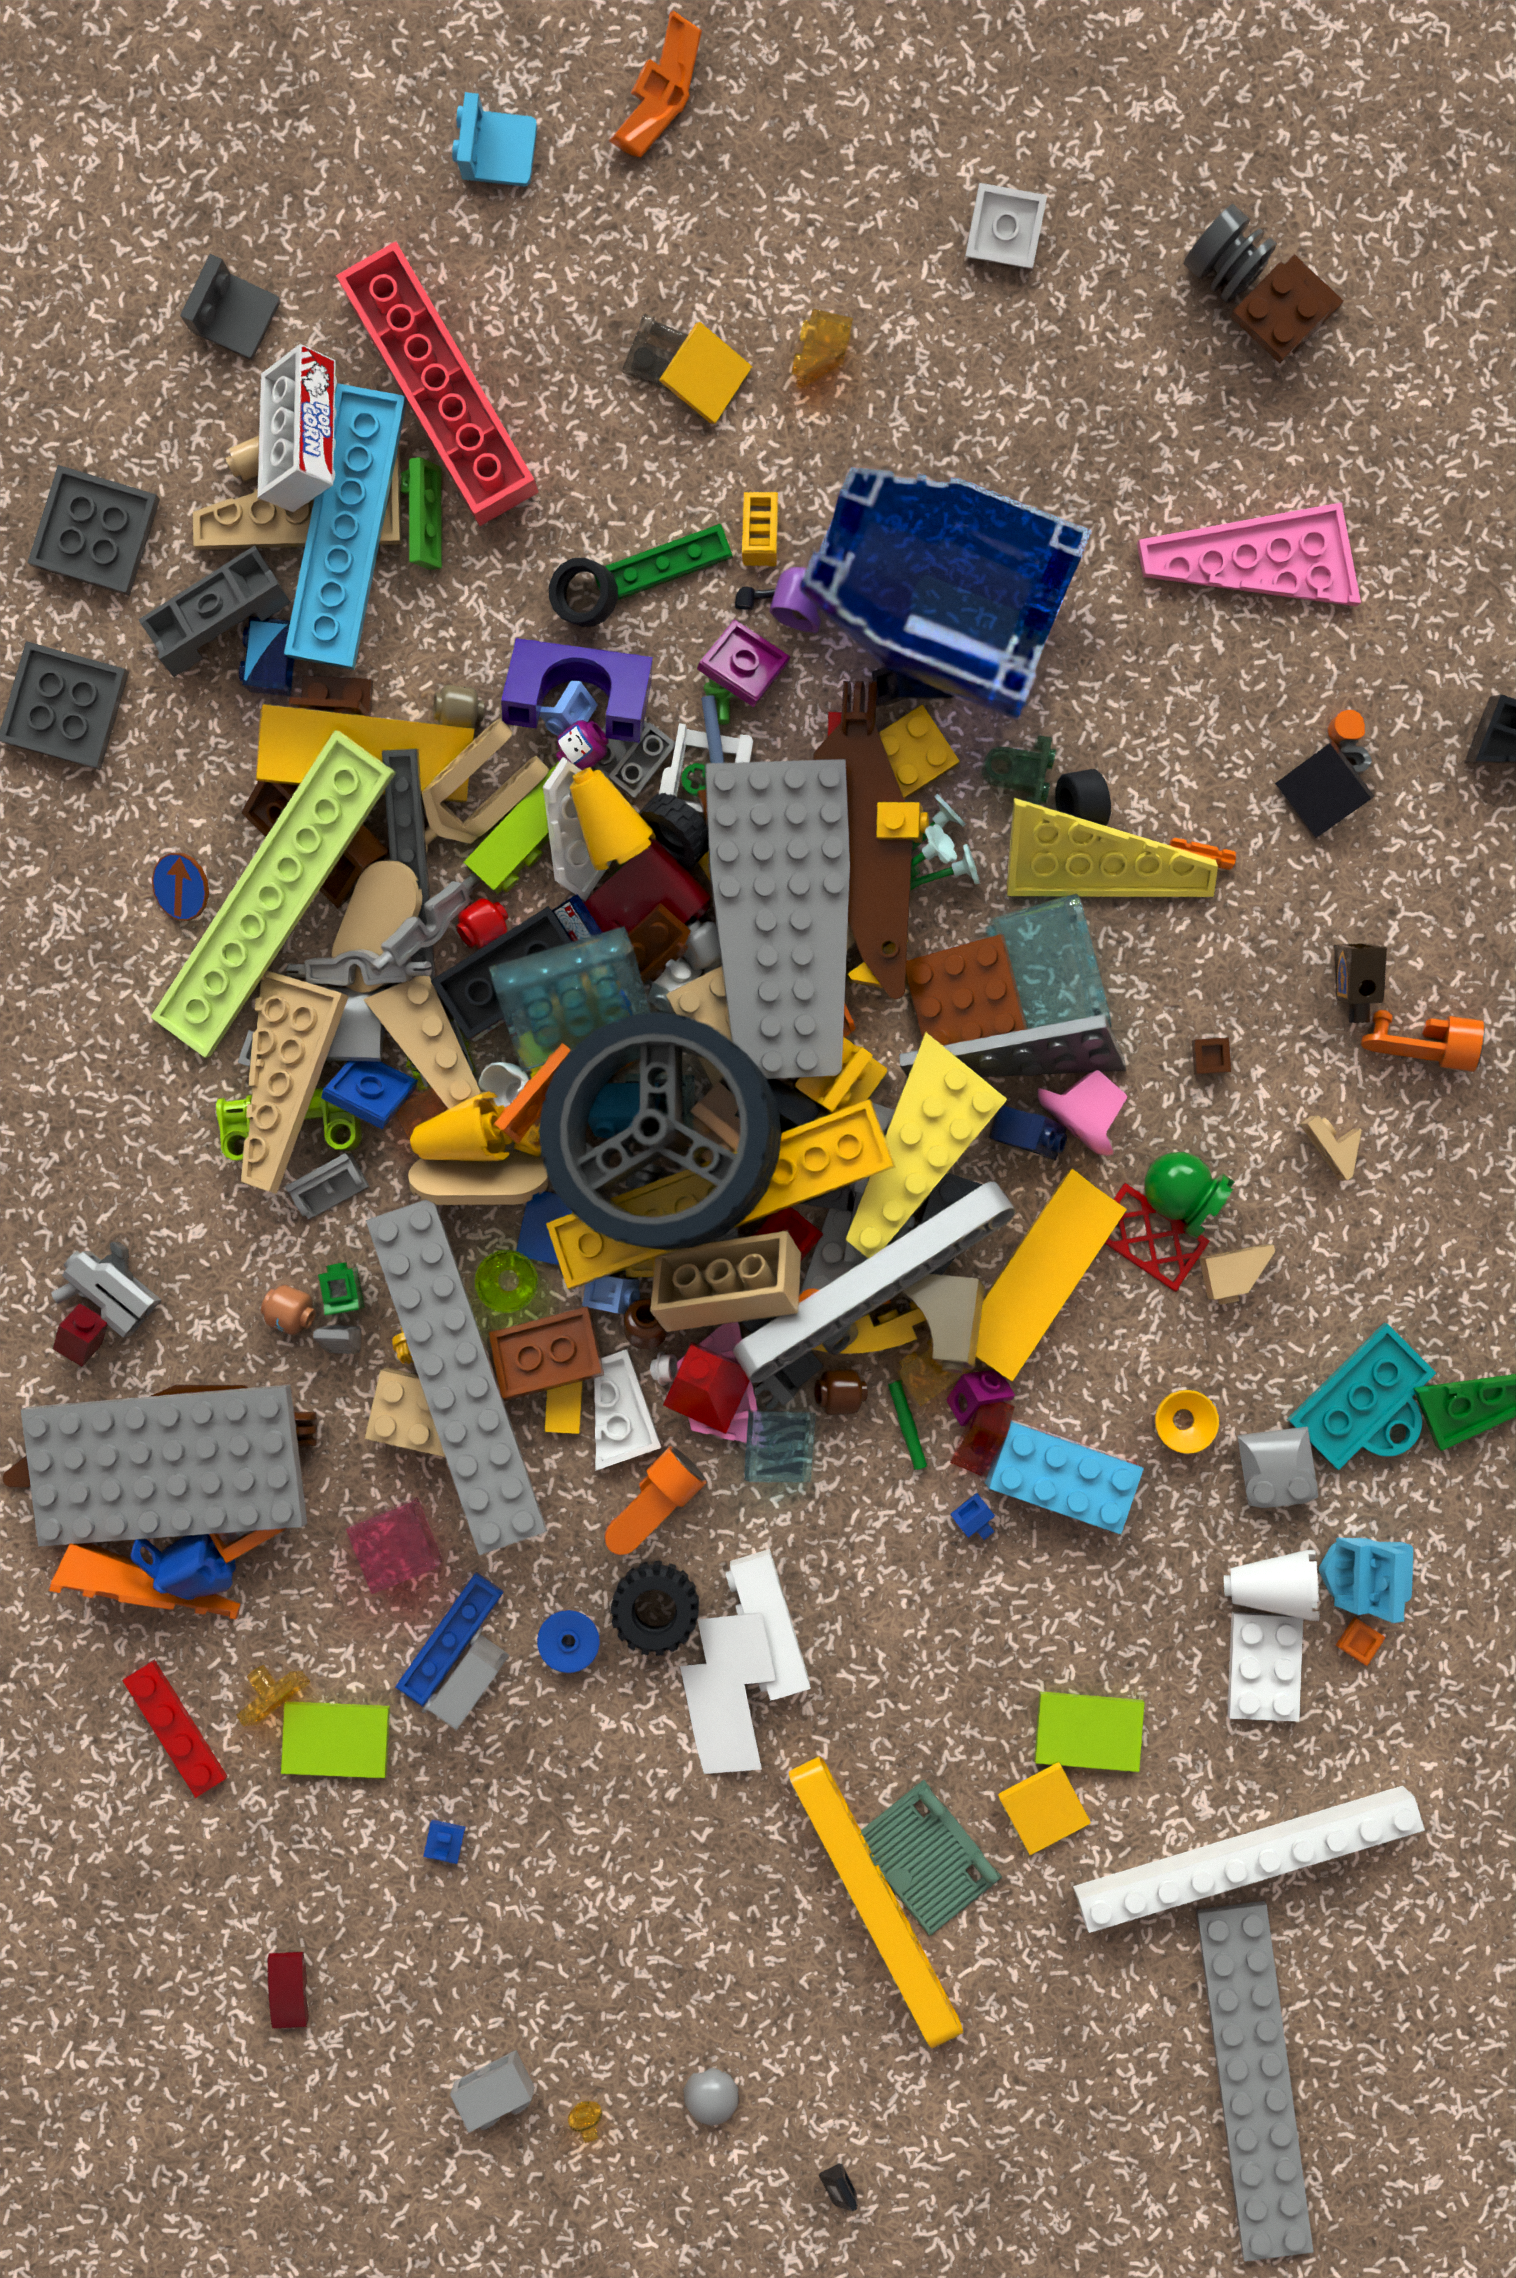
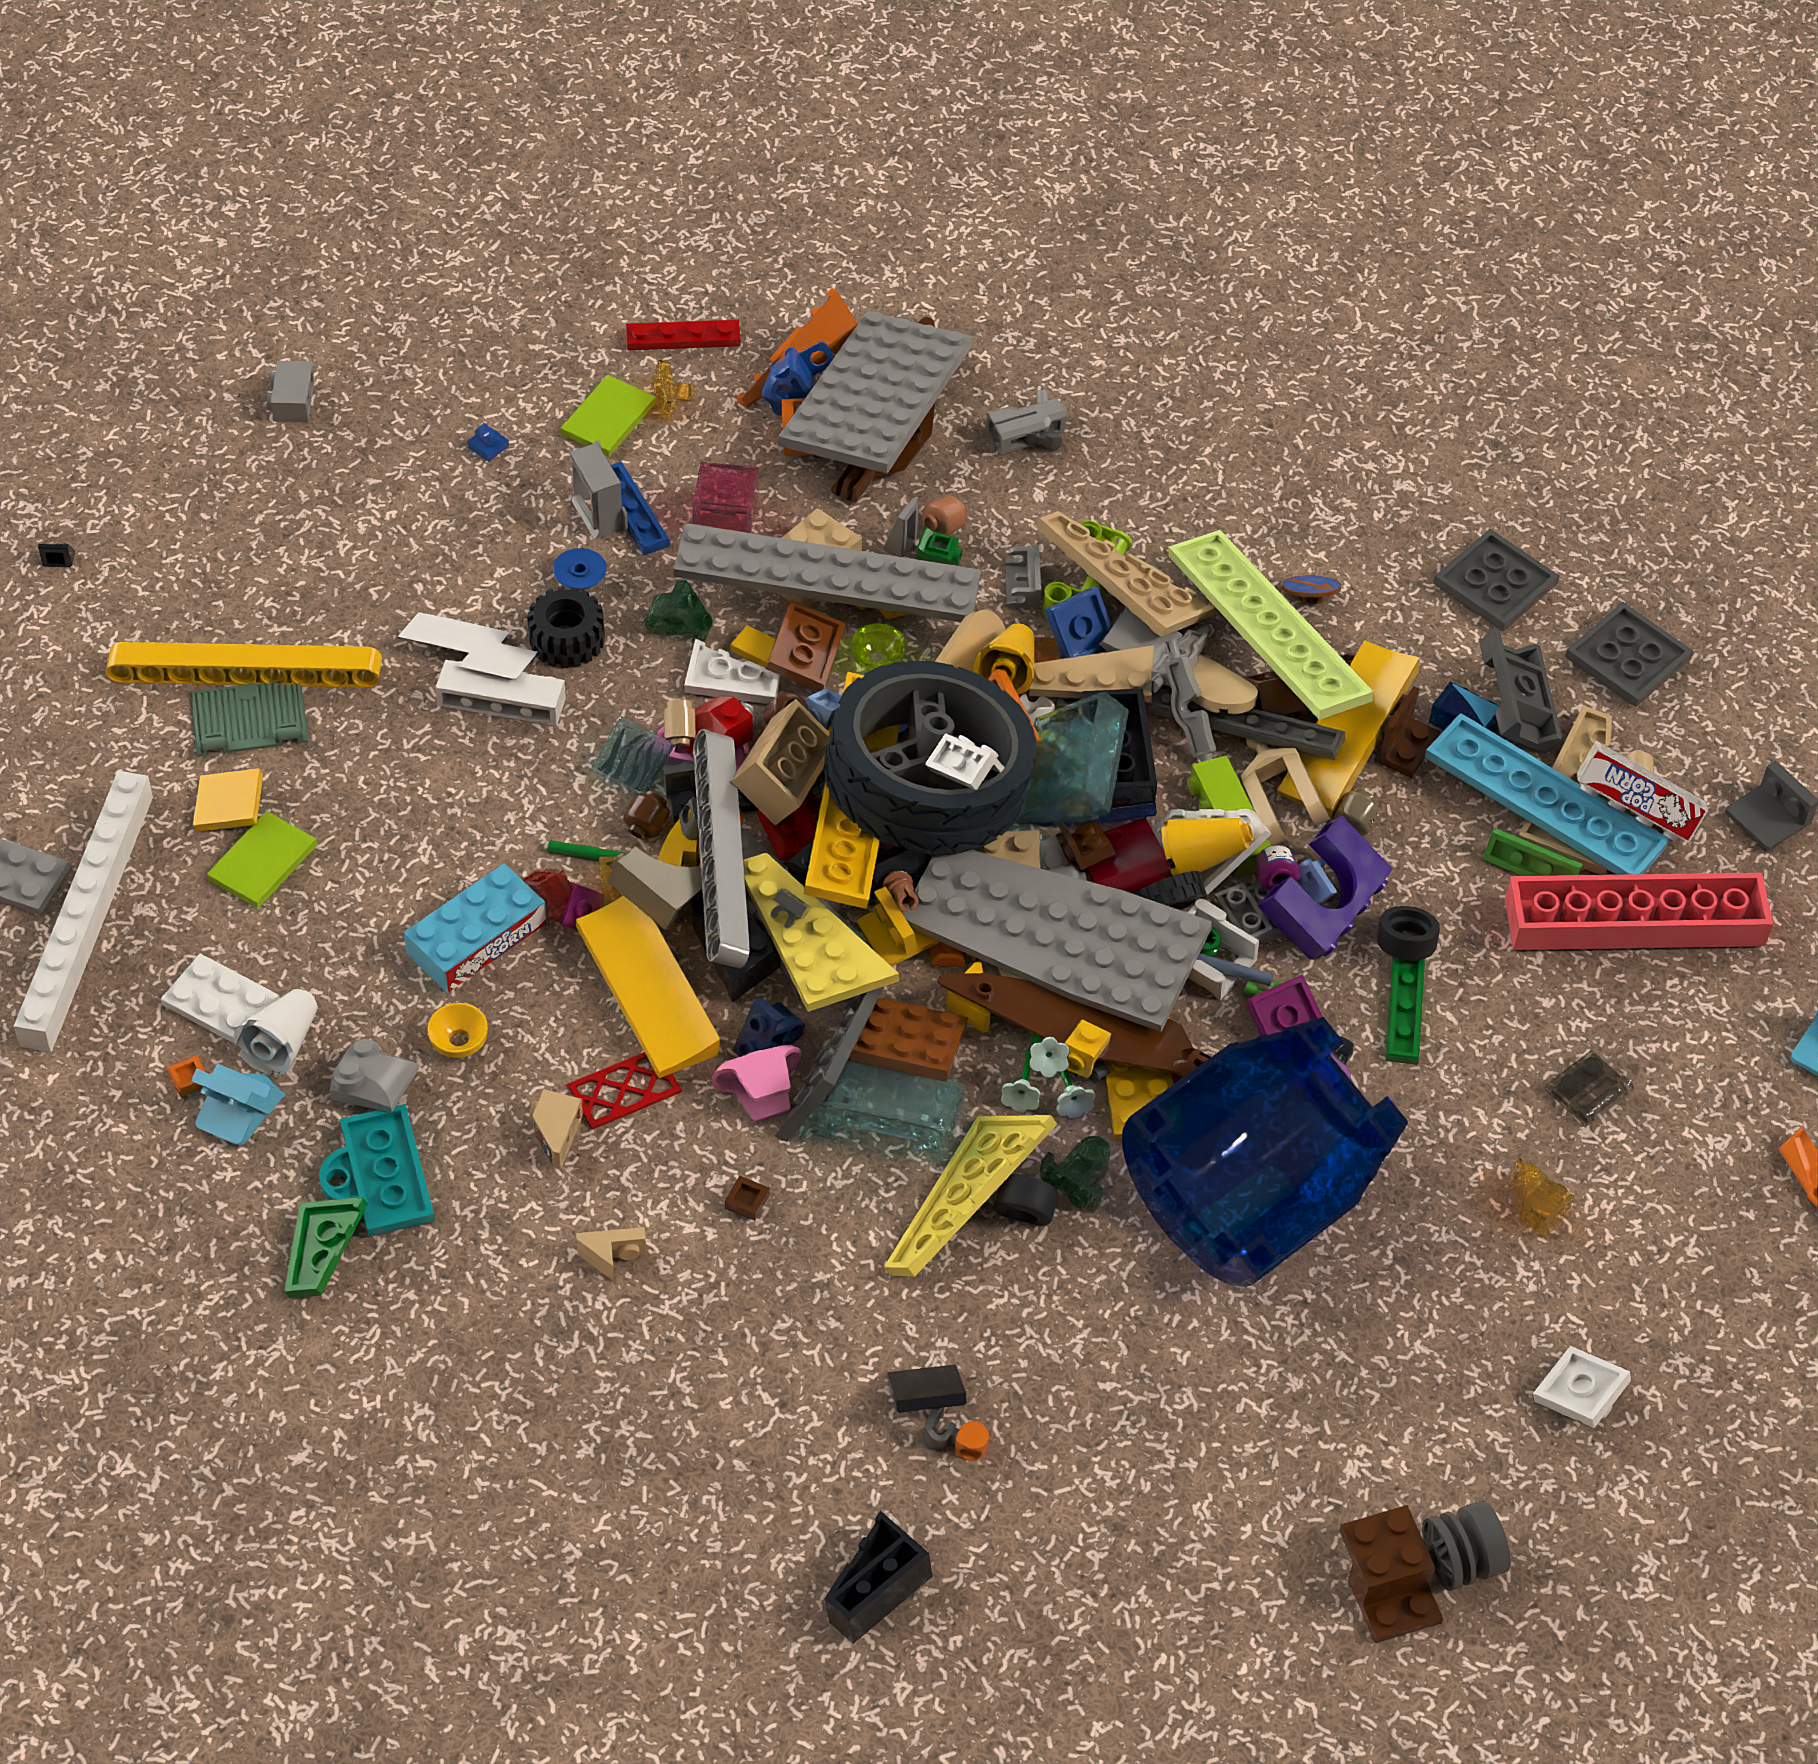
camera: 115 degrees right, 35 degrees down
(80, 1335) = (1005, 391): dark red brick -> none
(287, 1990) = (458, 317): dark red slope -> none
(482, 923) = (1171, 753): red head -> none
(575, 1503) = (678, 613): none -> clear green pin
(585, 2118) = (229, 431): clear yellow plate -> none
(669, 1484) = (652, 674): orange piece -> none
(683, 1076) = (963, 761): none -> white bracket
(705, 373) = (1556, 1102): yellow tile -> none
(711, 2096) = (183, 510): light grey hair -> none
(733, 1414) = (679, 722): none -> tan brick
(760, 550) = (1382, 1088): yellow slope -> none
(812, 1089) = (901, 889): none -> nougat pin
(913, 1171) = (792, 905): none -> dark grey tile
(974, 1517) = (485, 856): blue tile -> none
(1183, 1188) = (648, 1113): green tile -> none
(1224, 858) = (926, 1278): orange axle -> none
(1278, 554) = (1164, 1461): bright pink wing -> none
(1358, 965) = (745, 1333): dark brown torso -> none
(1458, 1050) = (637, 1380): orange piece -> none

